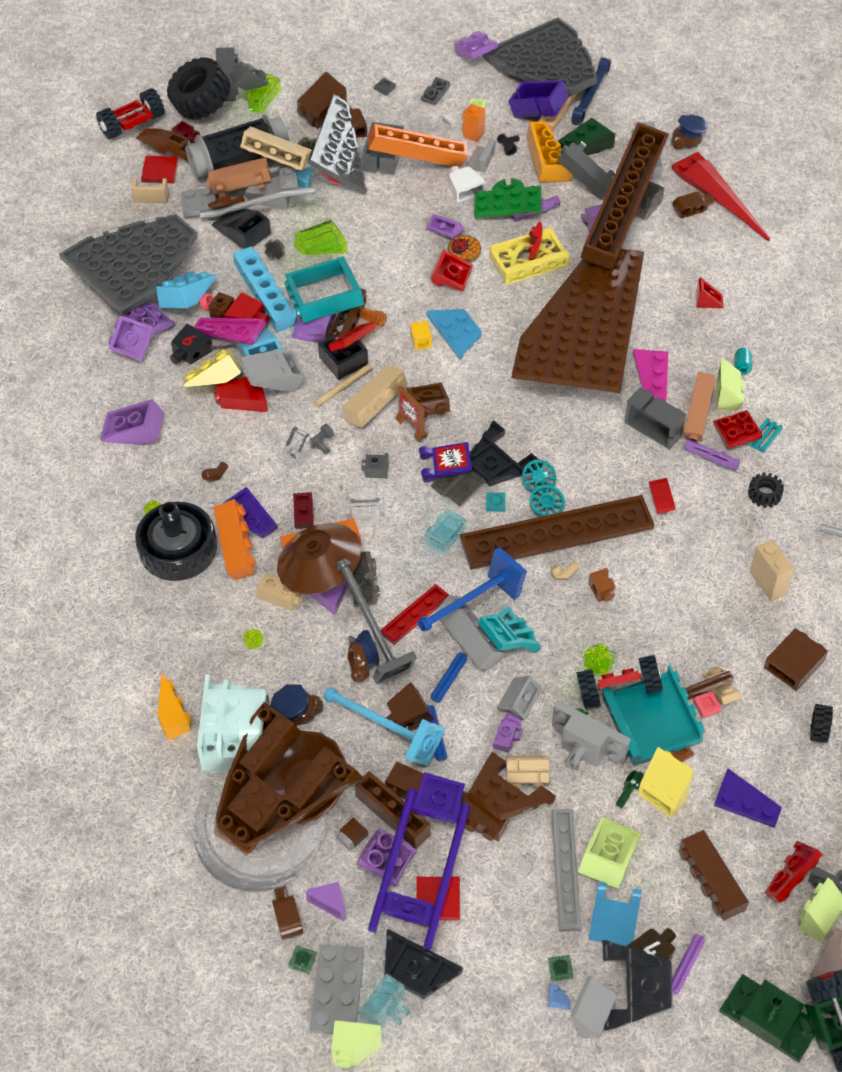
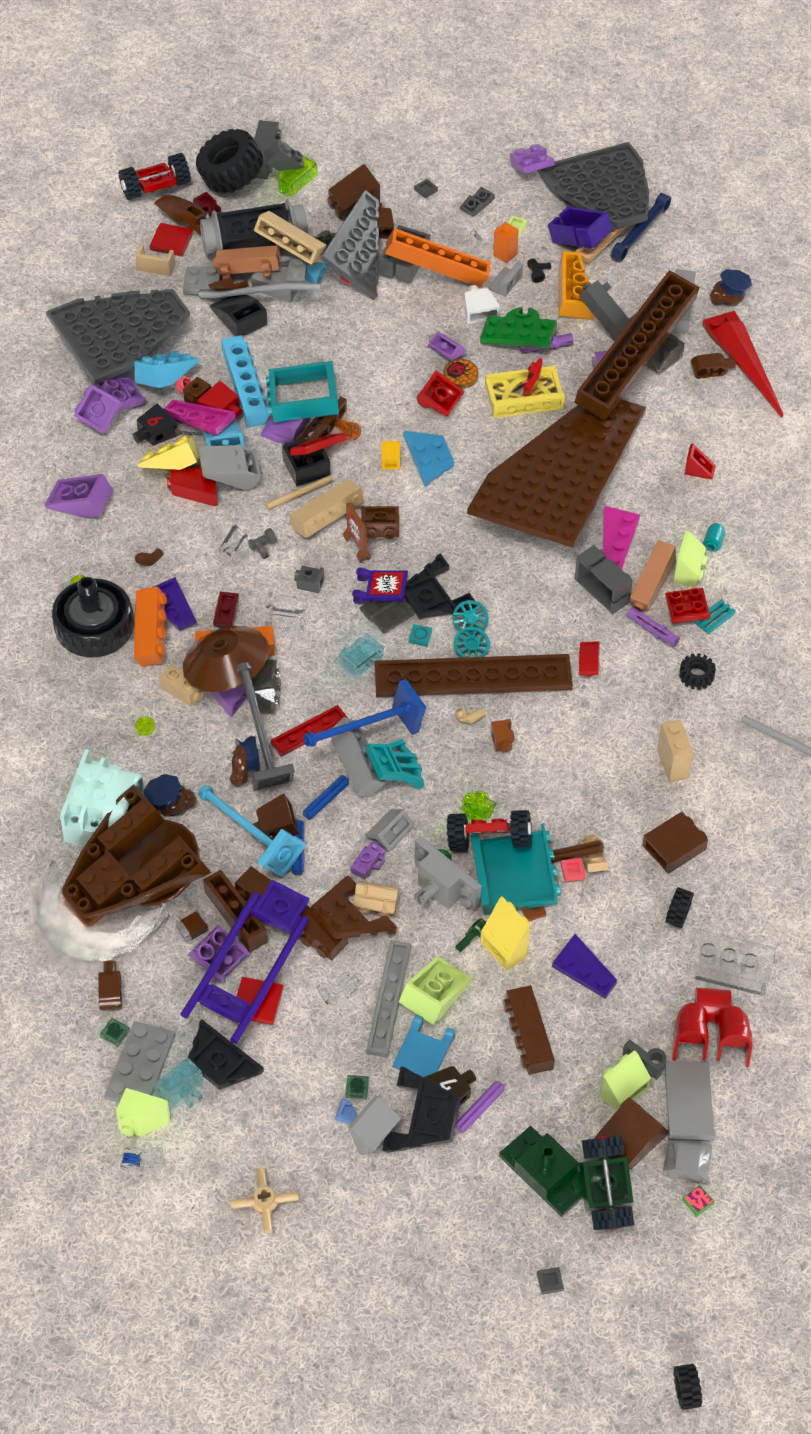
camera: 10 degrees right, 0 degrees up
(170, 712) = (46, 780): light orange slope -> none
(274, 249) = (265, 342): clear smoke gear -> none
(321, 239) = (315, 340): clear neon green slope -> none
(328, 899) = (152, 981): medium lavender slope -> none
(592, 134) = (624, 276): dark green wedge -> none
(796, 868) = (612, 1037): red wing -> none

